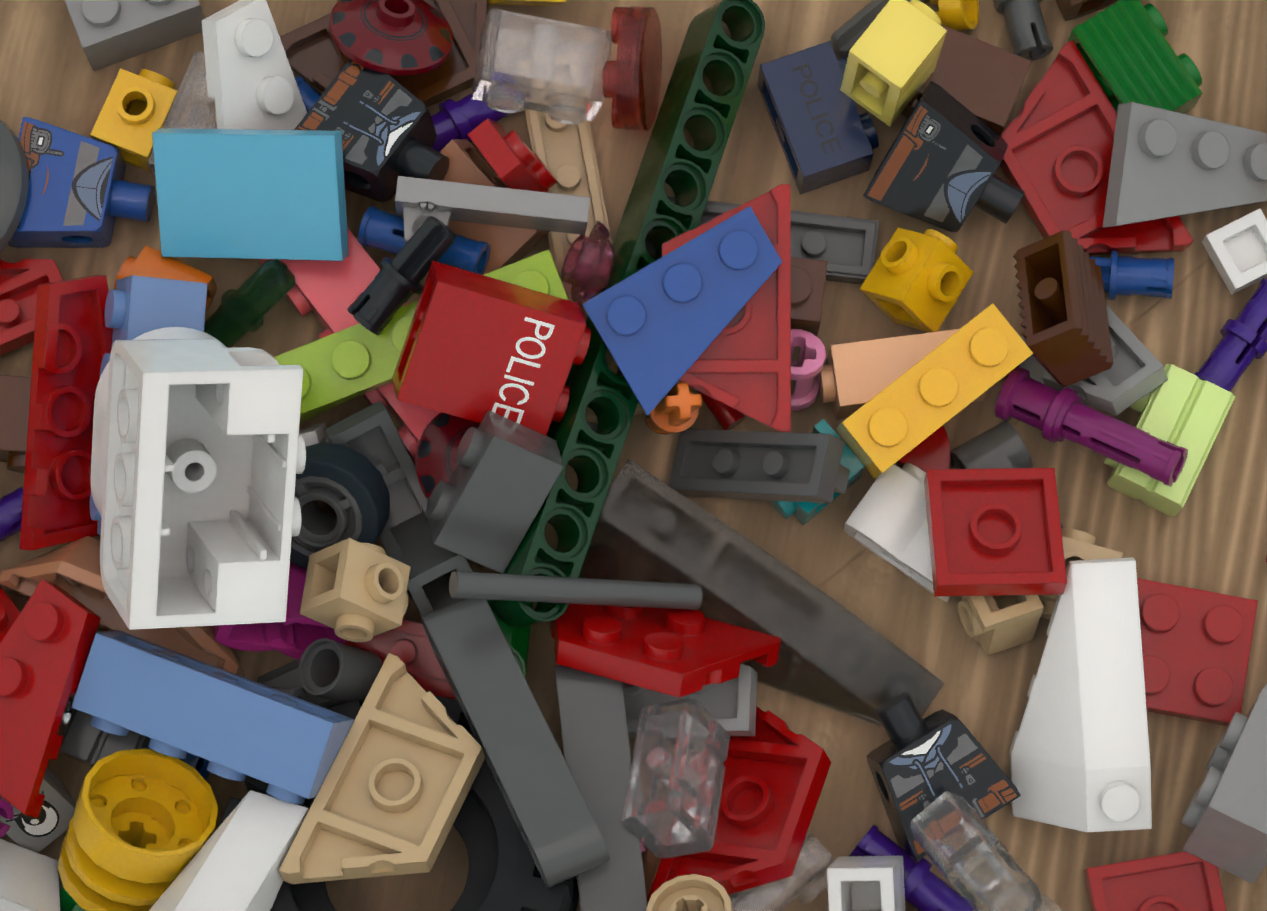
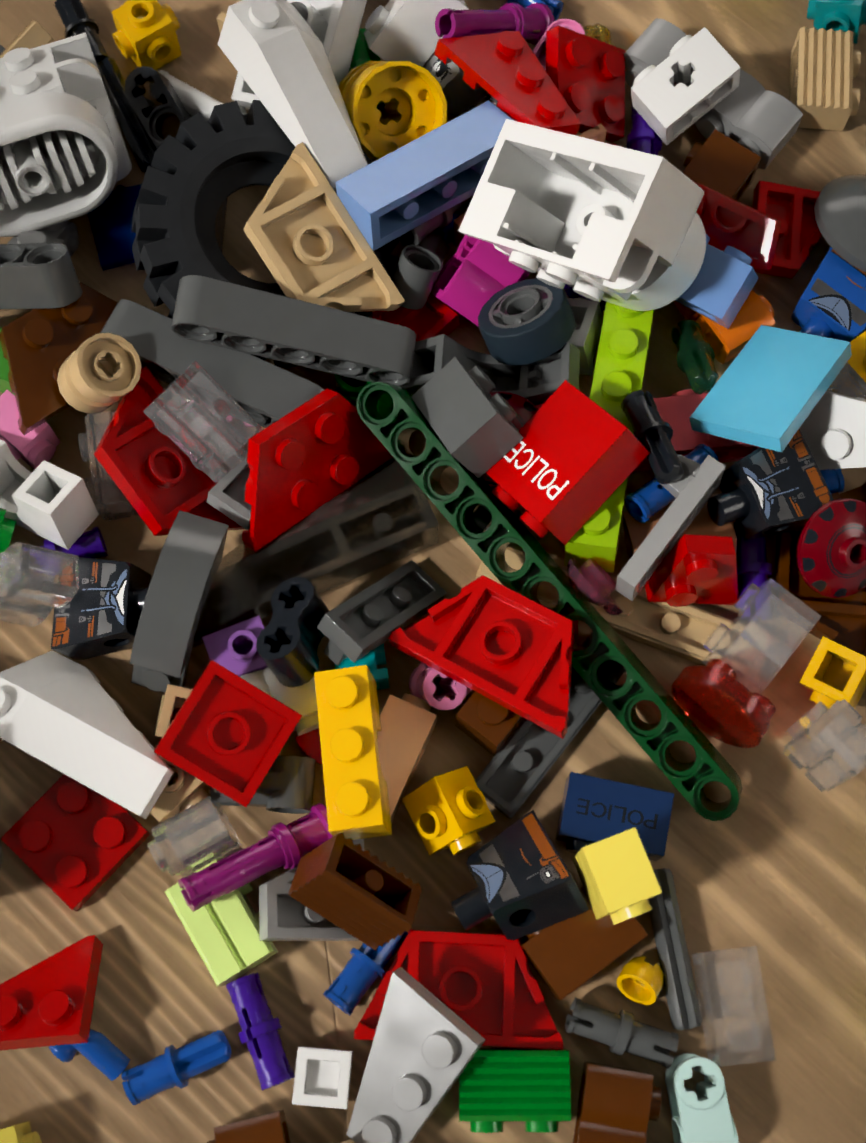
camera: 125 degrees right, 5 degrees down
(355, 590) = (454, 297): tan brick -> none
(575, 590) = (365, 423): dark grey bar -> none
(675, 411) = (455, 577): orange axle -> none
(680, 303) = (521, 608): blue wing -> none
(843, 535) = (292, 635): none -> black axle
(883, 680) = (176, 601): none -> dark grey arch
(887, 595) = (236, 647): none -> medium lavender brick
(1116, 507) = (193, 839): none -> clear brick

